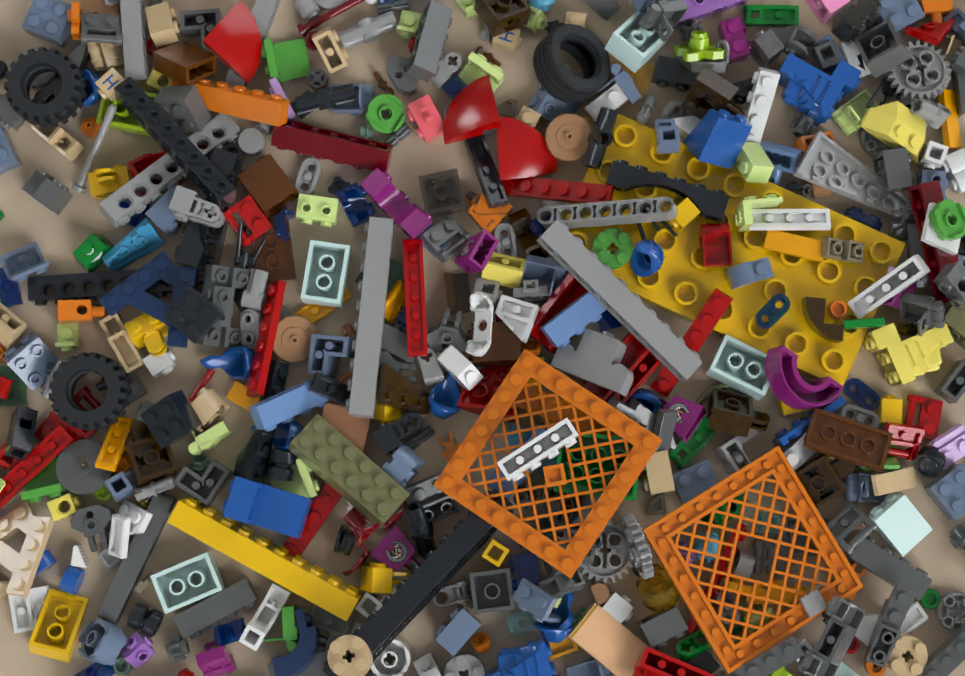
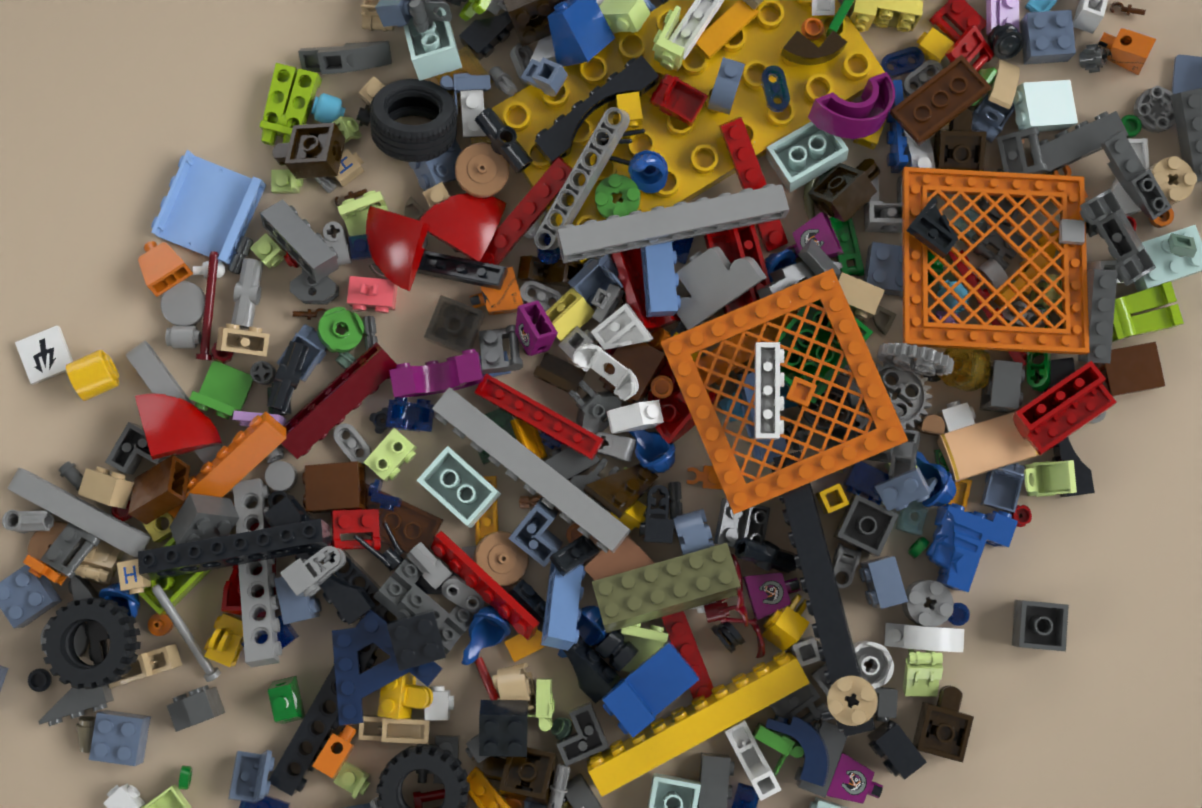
camera: 55 degrees left, 0 degrees up
(133, 246) = (307, 657): dark azure wing -> none
(480, 642) = (908, 568): orange tile -> none
(495, 373) = (661, 386): none -> orange plate
(501, 640) = (918, 547): none -> green tile
(743, 497) = (933, 229): none -> black wing

